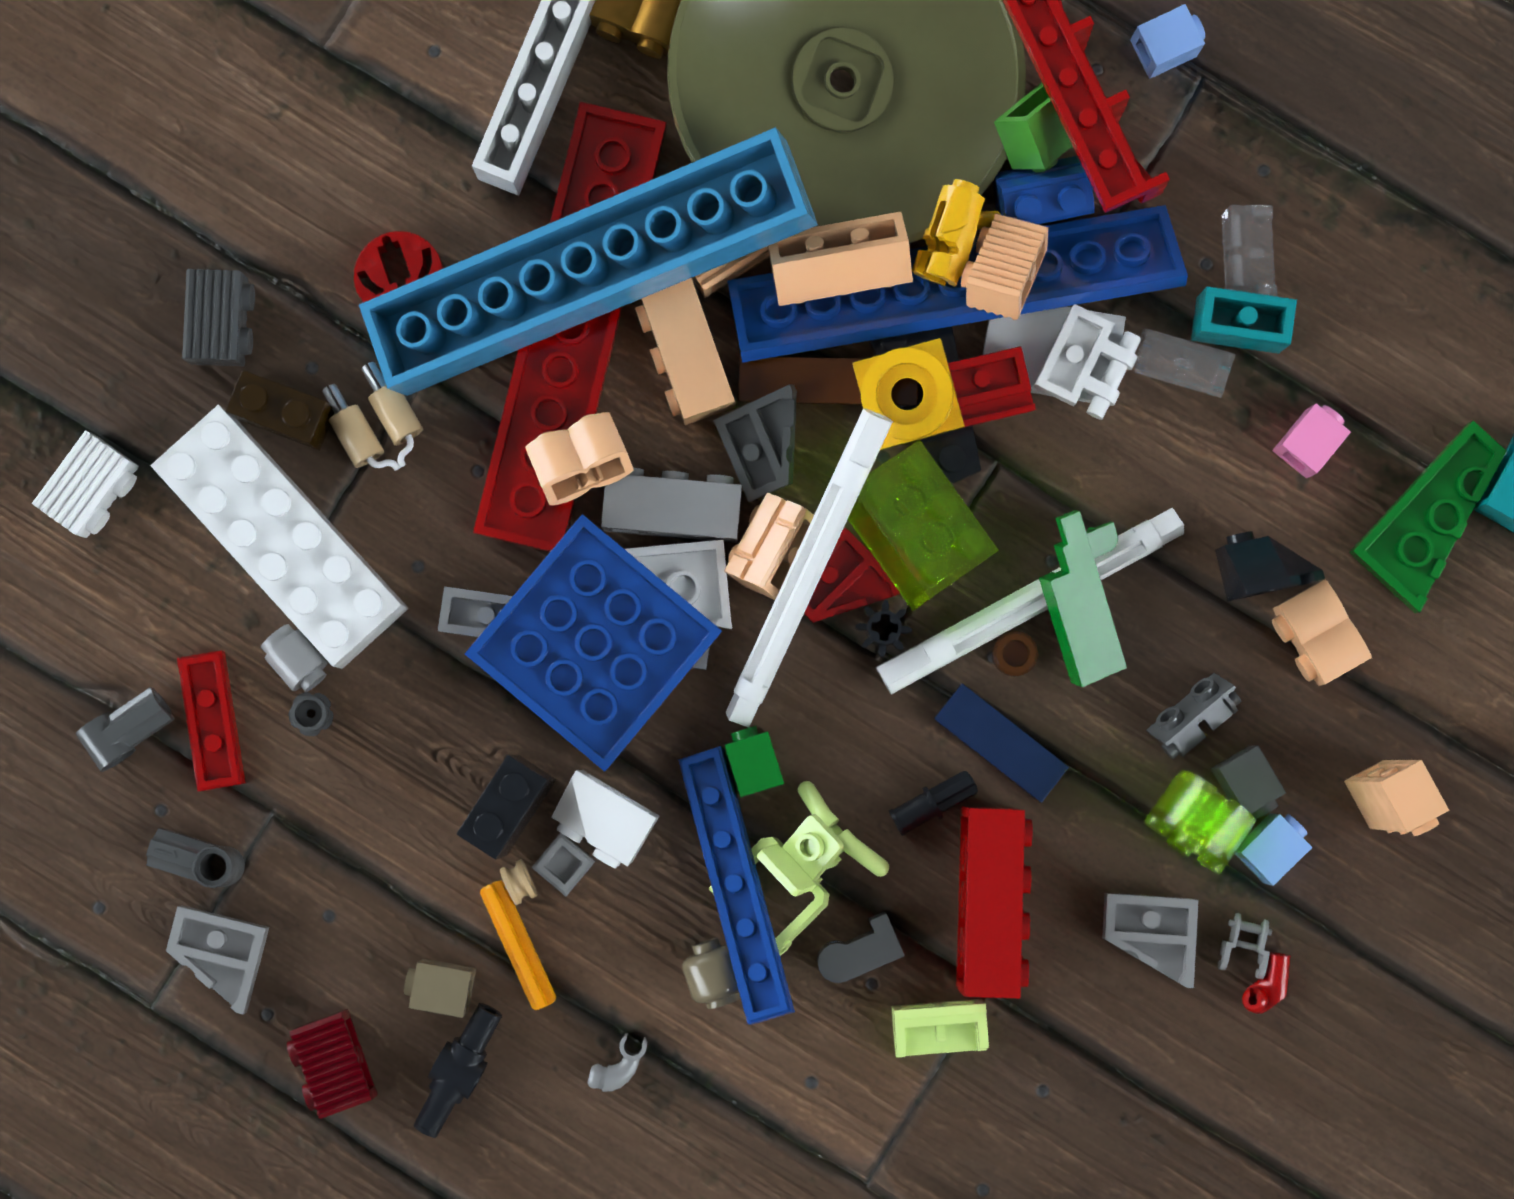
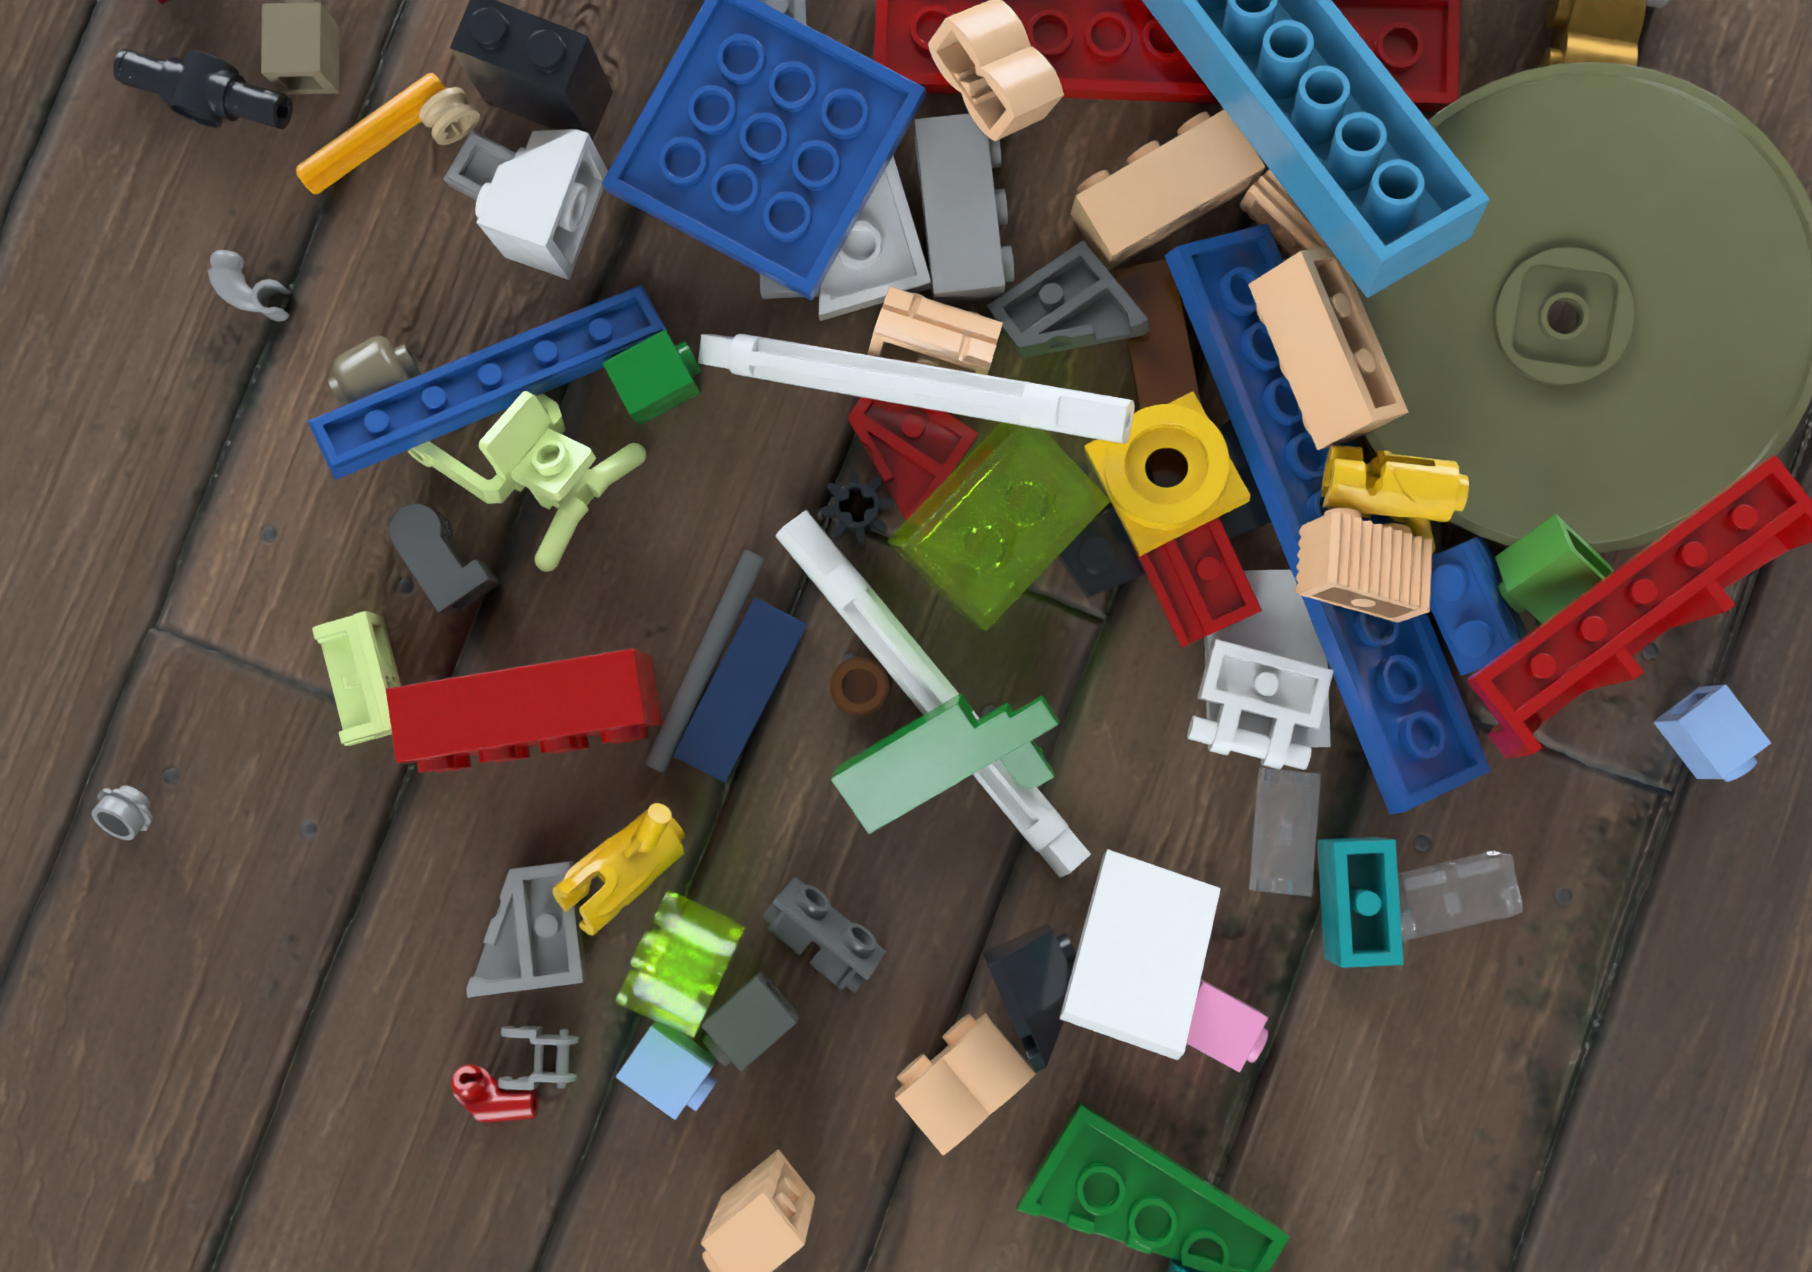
camera: 85 degrees right, 0 degrees up
(933, 802) = (647, 616): black axle -> none
(973, 766) = (704, 661): none -> dark grey bar
(1117, 847) = (626, 866): none -> yellow piece
(1253, 484) = (1141, 955): none -> white tile

